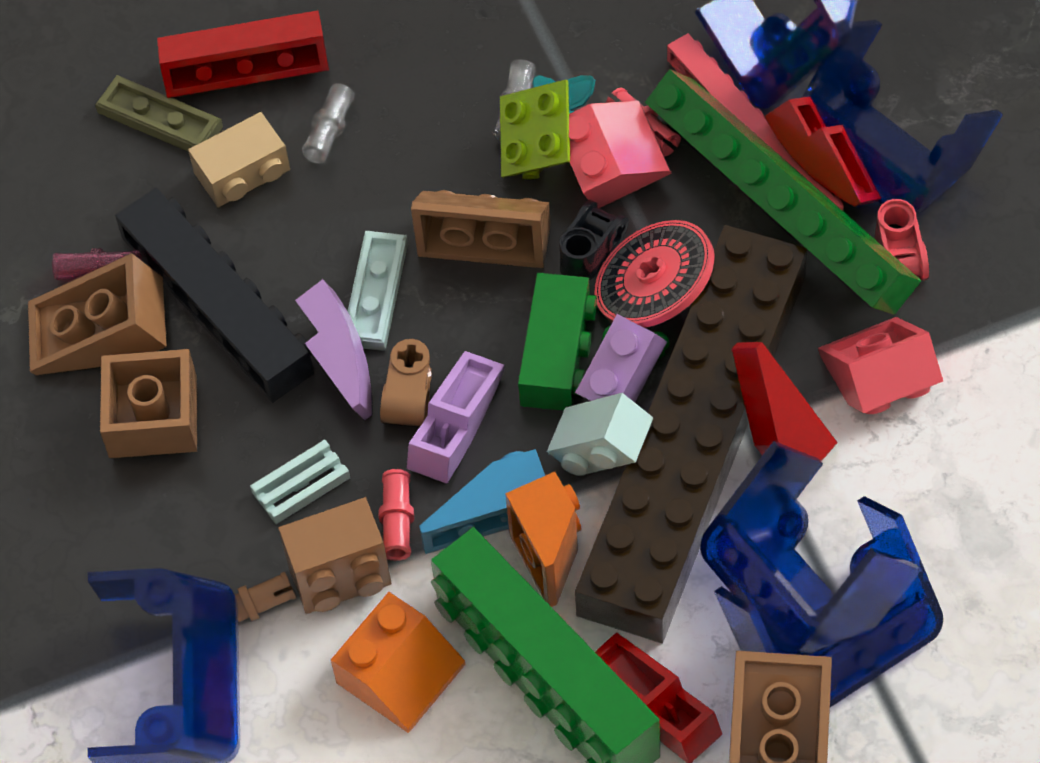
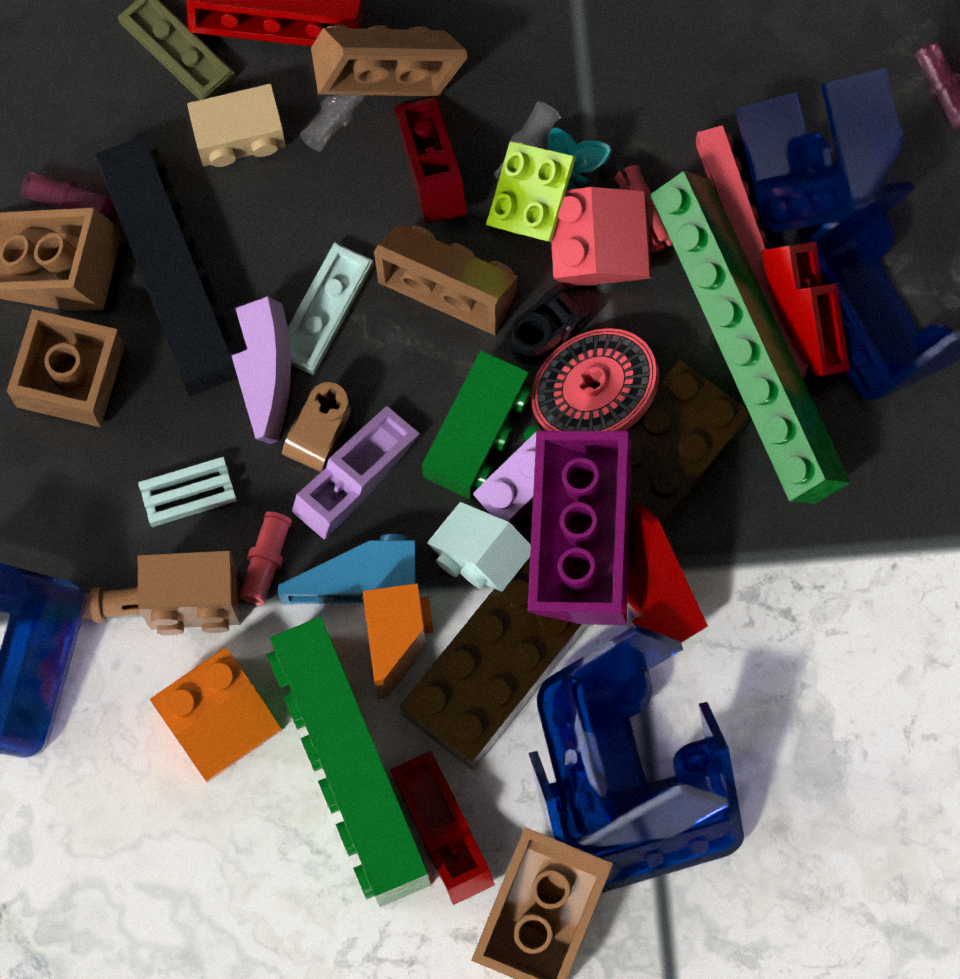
camera: 15 degrees right, 15 degrees up
(362, 64) = (385, 61): none -> medium nougat slope
(433, 138) = (431, 160): none -> dark red slope
(692, 375) = (581, 526): none -> magenta slope
(882, 365) = (782, 553): coral slope -> none
(904, 242) = (851, 433): coral piece -> none

